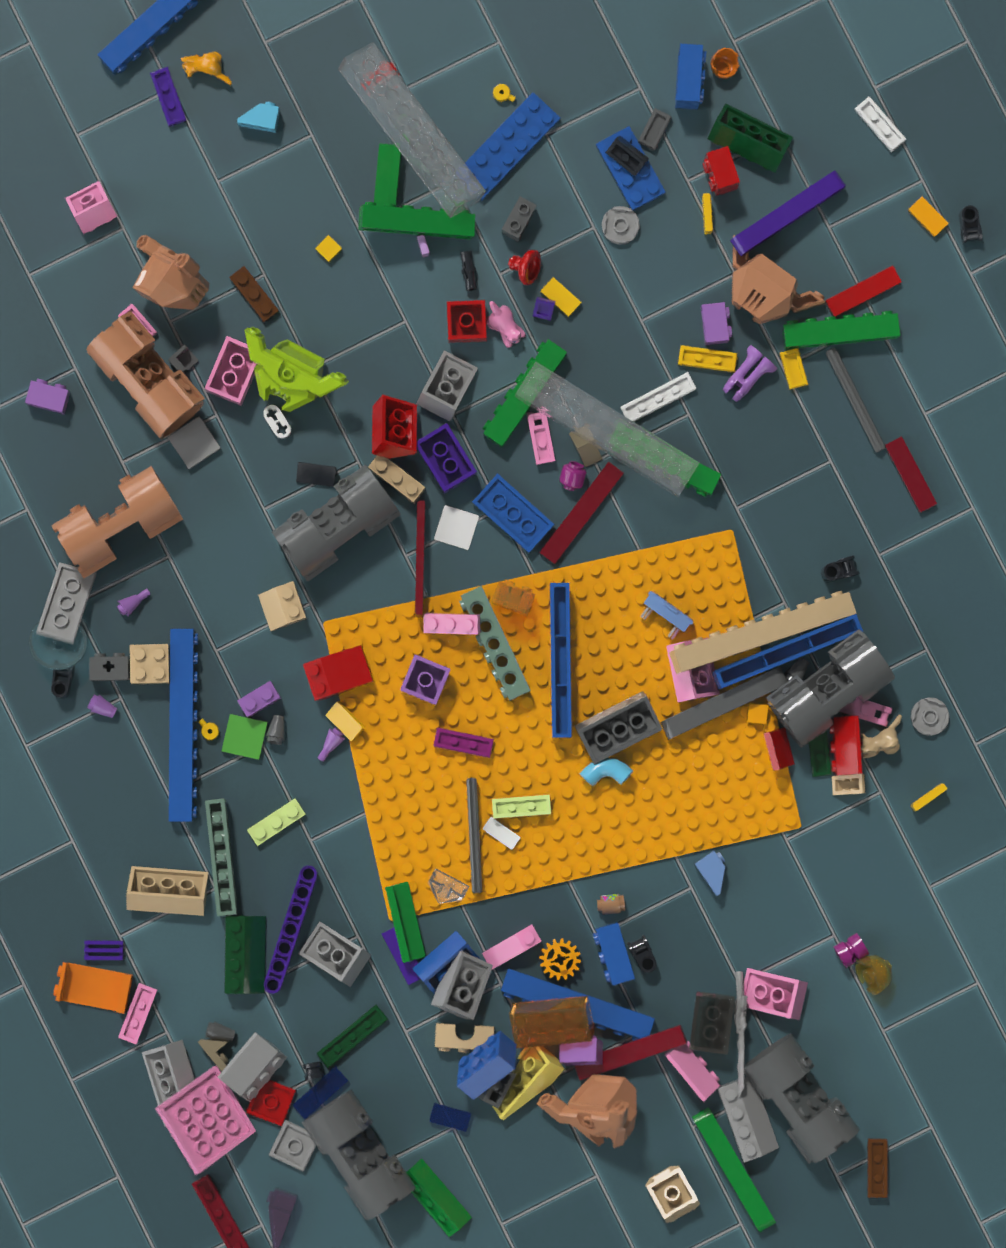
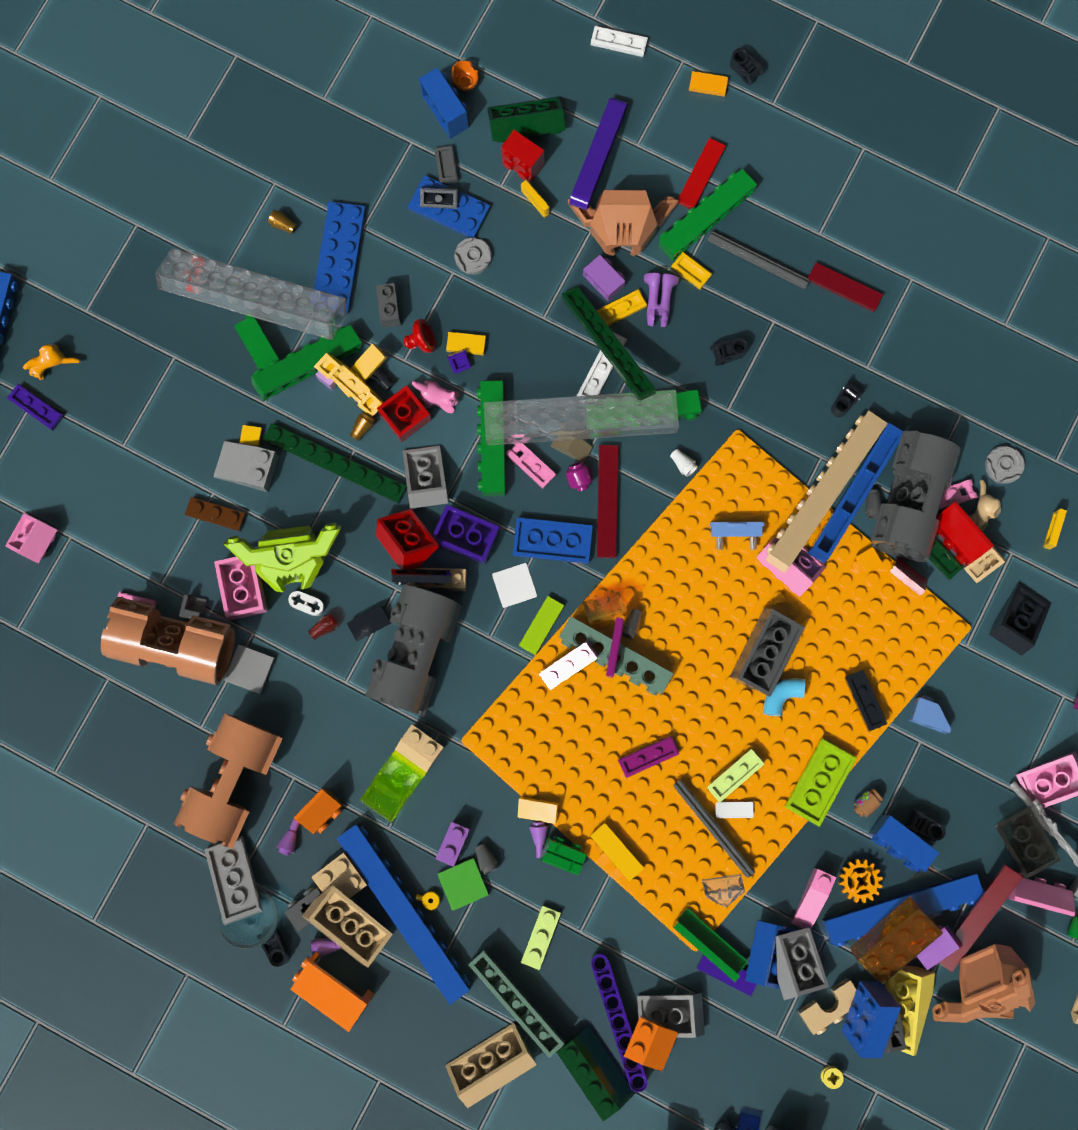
camera: 30 degrees left, 5 degrees down
(47, 396) = (99, 718): medium lavender brick -> none
(81, 746) = (329, 994): none -> orange panel
(132, 703) = (347, 925): none -> tan slope
(169, 277) = (133, 546): nougat helmet -> none
(171, 598) = (319, 811): none -> orange slope
(243, 620) = (393, 787): none -> clear neon green slope
(261, 117) = (122, 370): medium azure slope -> none
(278, 451) = (323, 626): none -> clear red cone
(303, 961) = (651, 1043): none -> orange slope
(307, 271) = (246, 465): none -> light grey slope
(338, 673) = (503, 774): red slope -> none
(339, 771) = (562, 855): none -> green brick
(352, 1036) = (735, 1075): dark green tile -> none
(381, 321) = (334, 463): none -> dark green plate
(383, 468) = (420, 576): none -> black plate
(384, 798) = (617, 852): none -> yellow tile
(420, 553) = (504, 631): dark red tile -> none
(425, 679) = (580, 727): medium lavender brick -> none
(426, 305) = (361, 426): none -> pearl gold cone
(428, 1090) = (831, 1072): none -> light yellow wheel
(441, 265) = (350, 383): none -> yellow slope
(450, 1117) = (868, 1084): clear blue tile -> none
(454, 576) = (541, 625): none -> lime tile
(457, 259) = (368, 363): none -> yellow tile
(480, 80) = (281, 221): none -> pearl gold cone
(497, 636) = (614, 647): none -> magenta tile
(503, 97) = (309, 219): yellow piece -> none
(526, 627) = (631, 624): none -> flat silver cone
(560, 660) = (679, 631): blue brick -> none
(585, 860) = (820, 782): none -> lime tile
(667, 527) = (684, 463): none -> white cone
(669, 822) = (865, 700): none -> black plate
(674, 383) = (608, 344): none -> dark green plate
(724, 703) = (836, 570): dark grey beam -> none
(771, 459) = (725, 352): none -> black piece
(844, 849) = (1020, 620): none -> black slope

